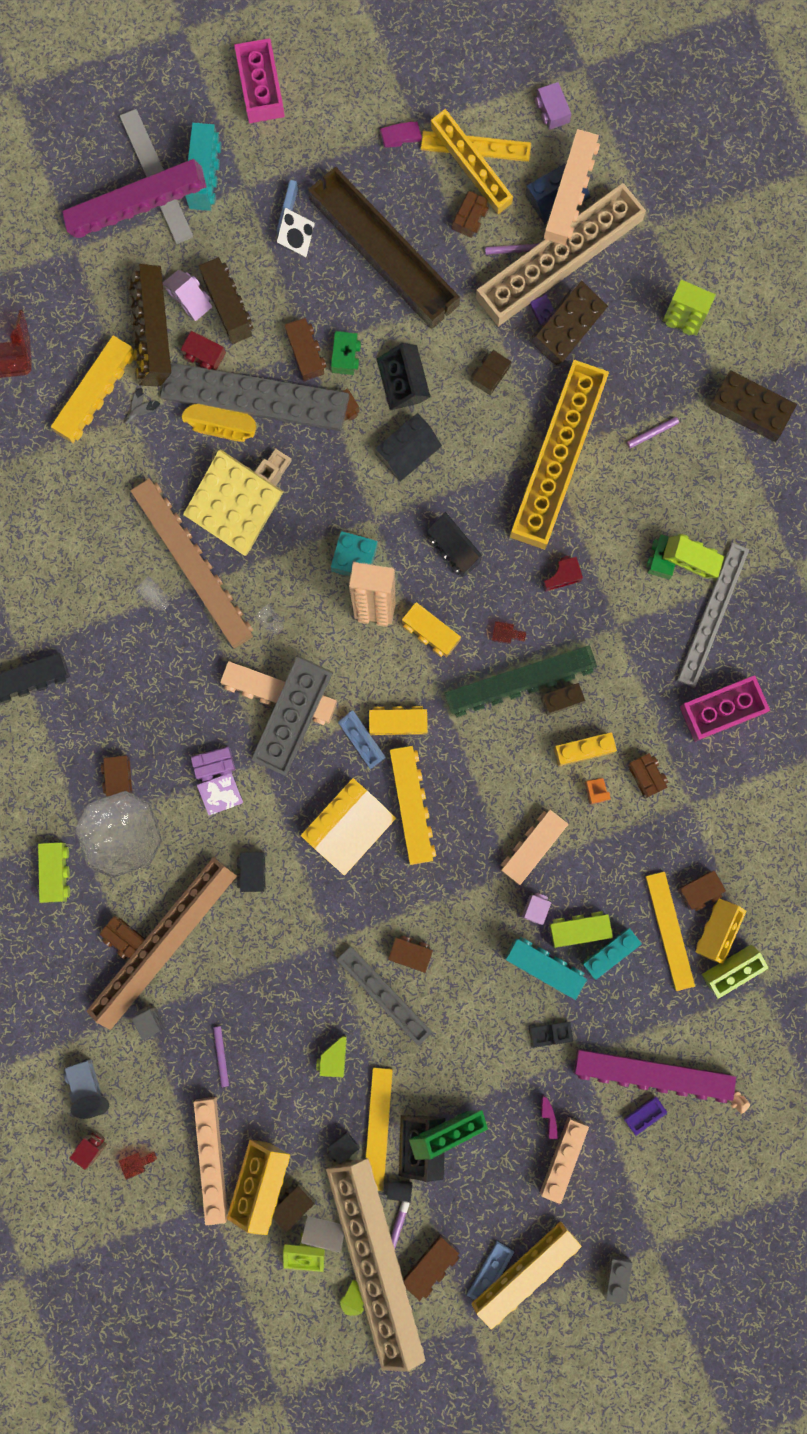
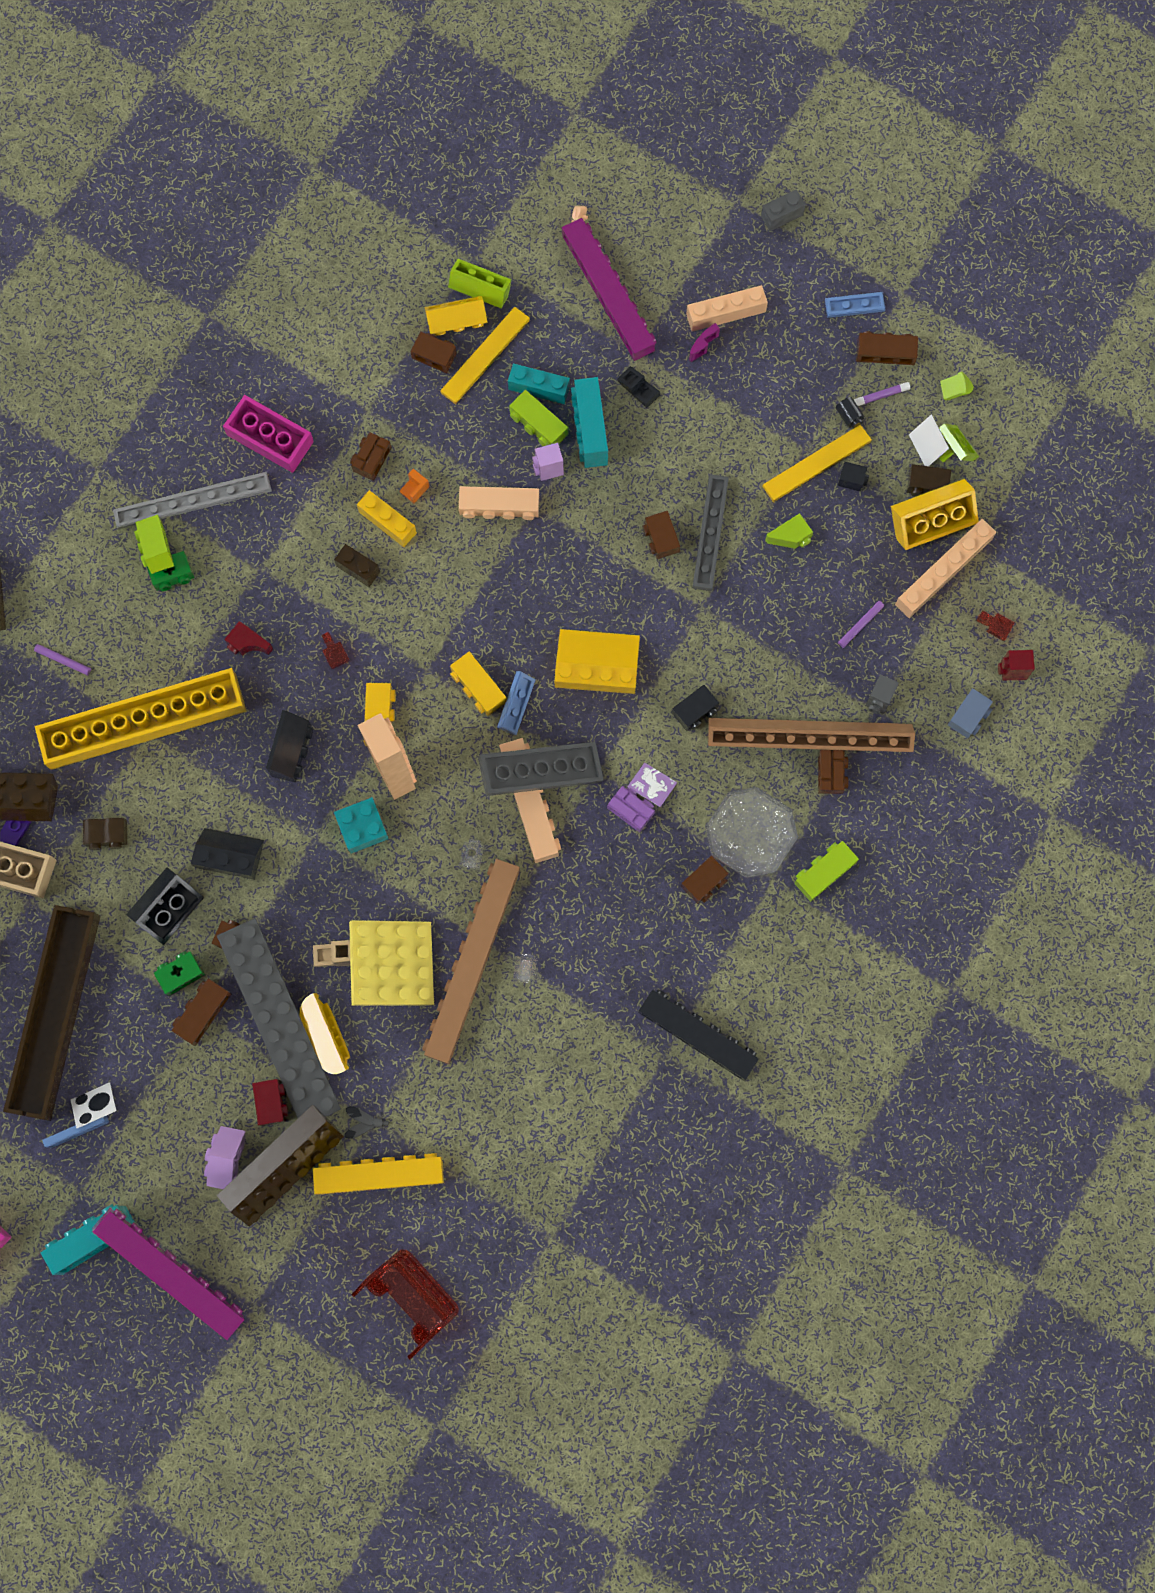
camera: 125 degrees left, 5 degrees down
(89, 1107) = (984, 692): black sticker -> none
(151, 166) = (122, 1292): light grey tile -> none
(226, 300) = (206, 1115): dark brown brick -> none
(375, 1265) = (918, 386): tan brick -> none
(411, 805) = (539, 622): yellow brick -> none
(419, 1169) = (804, 418): black slope -> none
(448, 1134) = (777, 398): green brick -> none
(520, 680) = (367, 611): clear green brick -> none
(526, 1275) = (834, 276): yellow brick -> none
(645, 1115) = (644, 275): dark purple plate -> none

